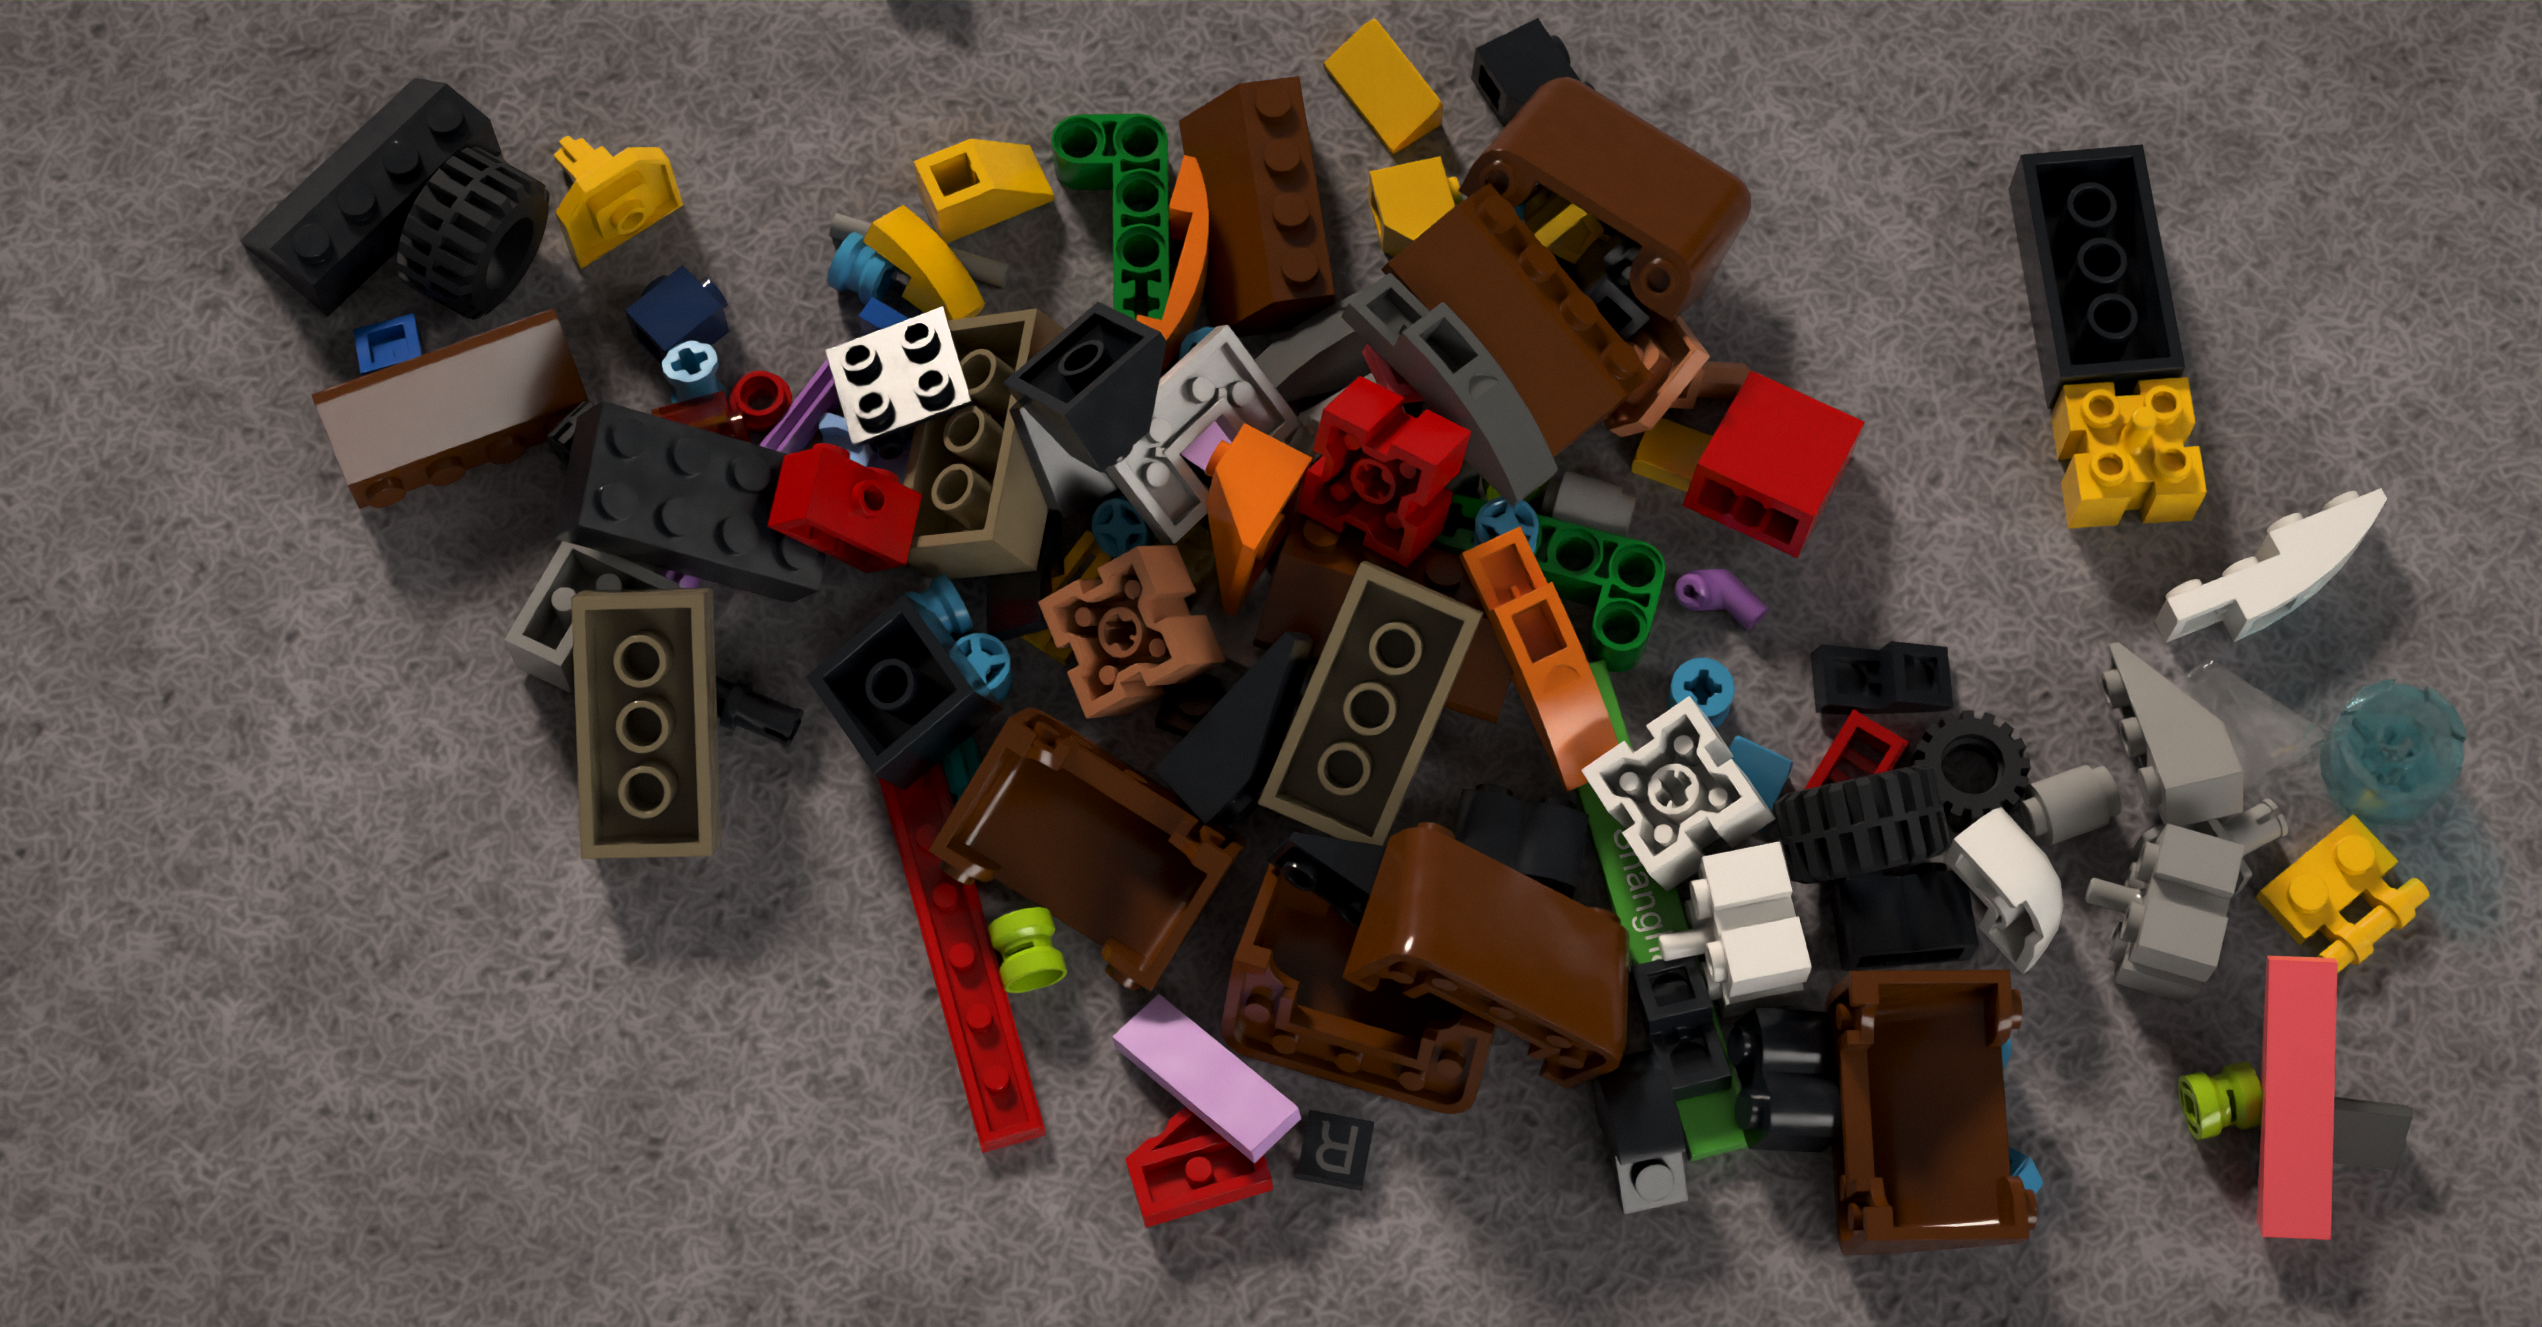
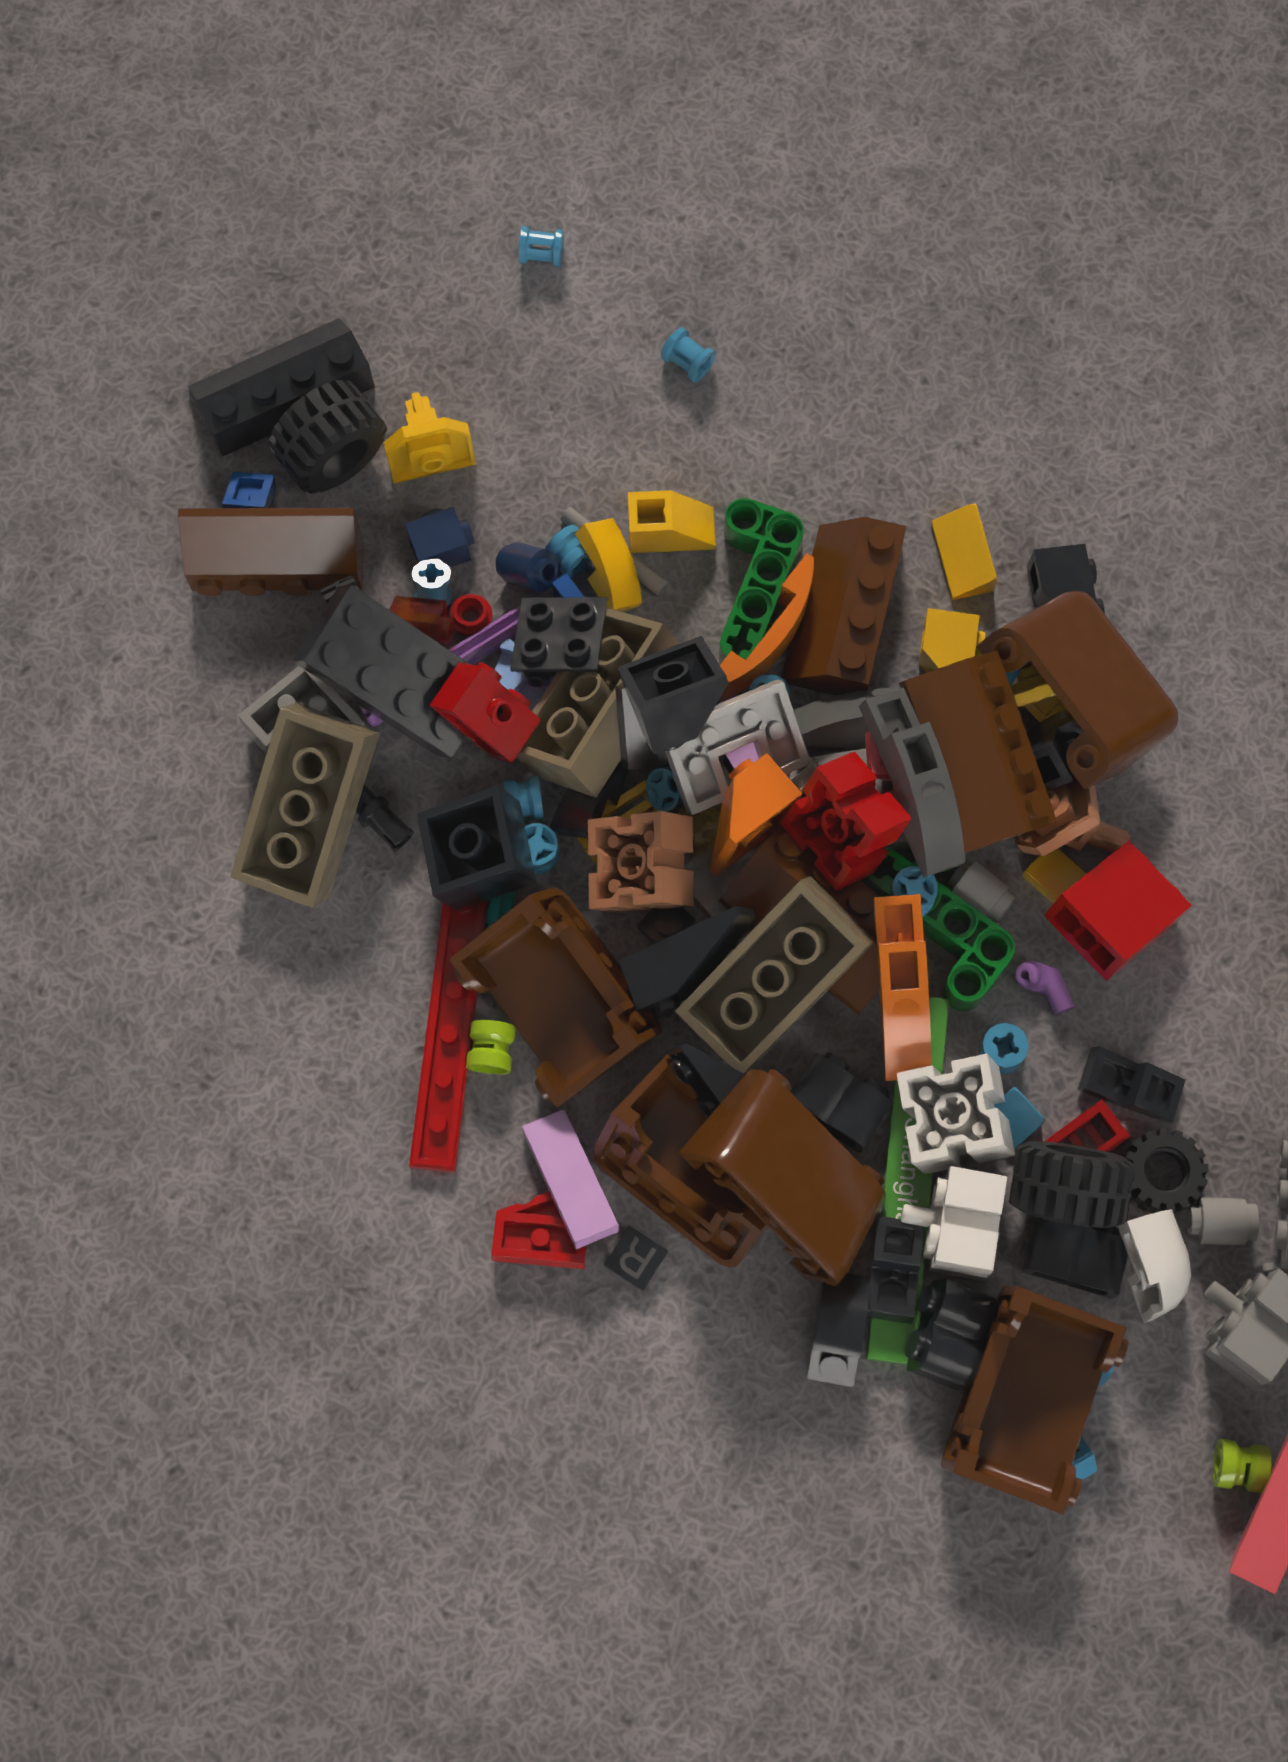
camera: 25 degrees right, 5 degrees up
(814, 308) = (527, 566): none -> dark blue brick

